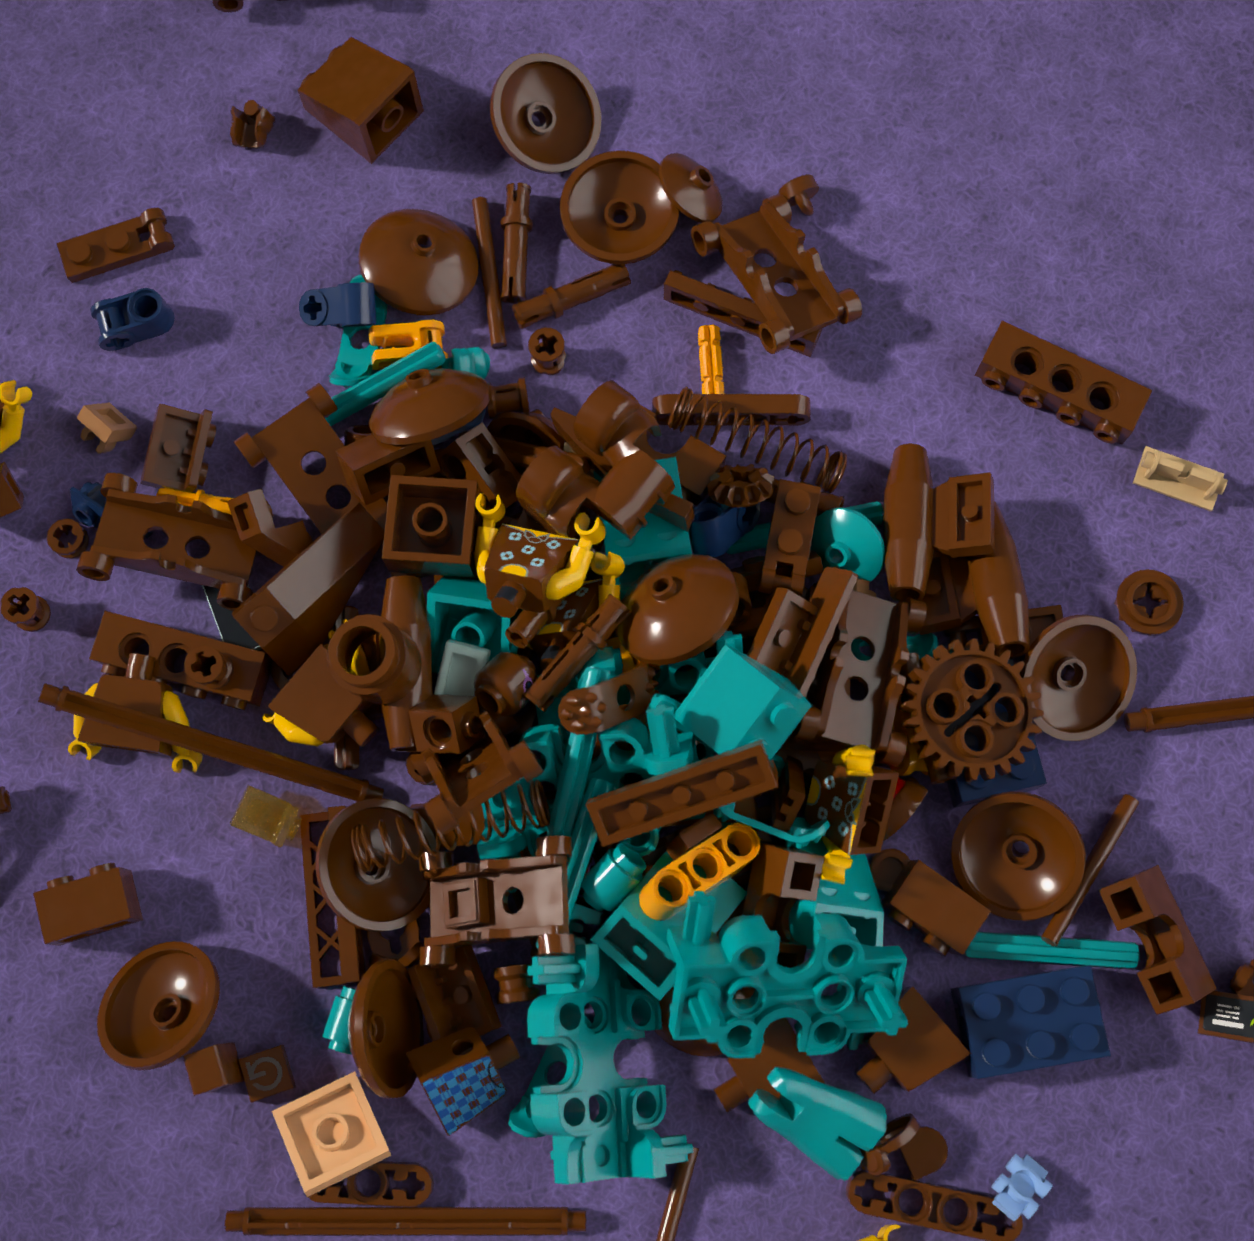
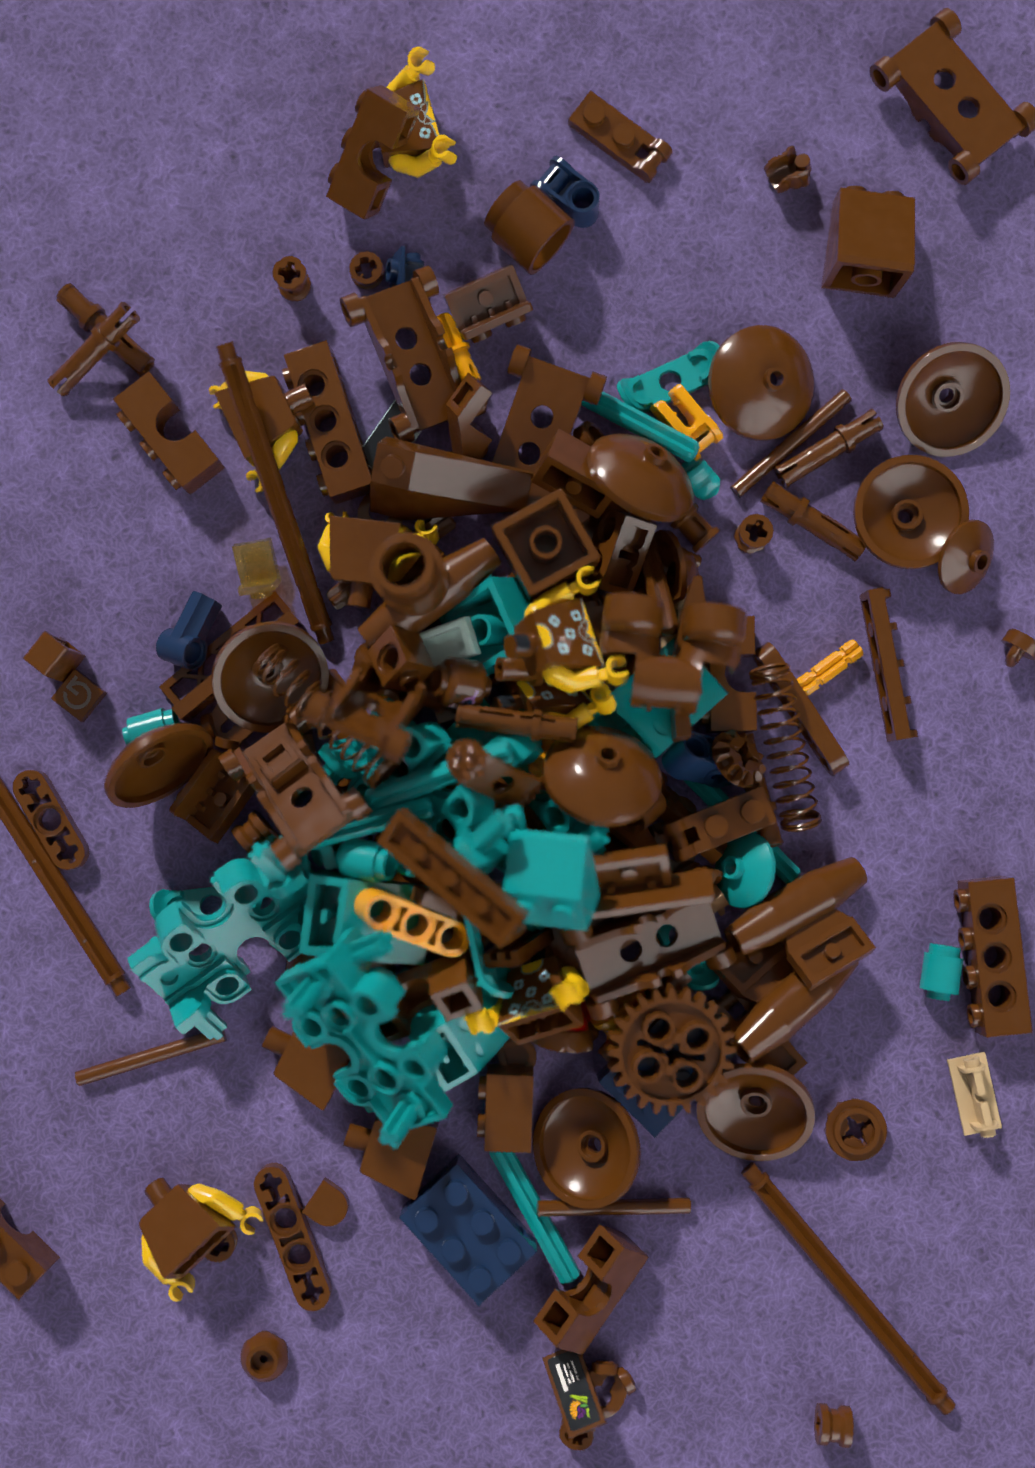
camera: 55 degrees right, 10 degrees up
(44, 822) = (148, 409): none -> reddish brown arch
(87, 905) = (107, 484): reddish brown brick -> none
(105, 423) = (471, 235): medium nougat tile -> none
(135, 368) = (528, 226): none -> reddish brown piece
(158, 1006) = (68, 572): reddish brown dish -> none
(196, 663) = (334, 439): reddish brown bush -> none
(288, 928) = (186, 641): none -> dark blue piece
(331, 1134) = (63, 771): light nougat plate -> none
(339, 306) = (681, 348): dark blue piece -> none
(462, 1074) = (163, 838): torso -> none
(769, 233) = (967, 642): reddish brown piece -> none
(821, 1120) = (296, 1120): teal piece -> none
(876, 1160) = (301, 1171): reddish brown piece -> none
(1016, 1192) = (346, 1292): light blue piece -> none
(1048, 436) = (941, 971): none -> teal brick

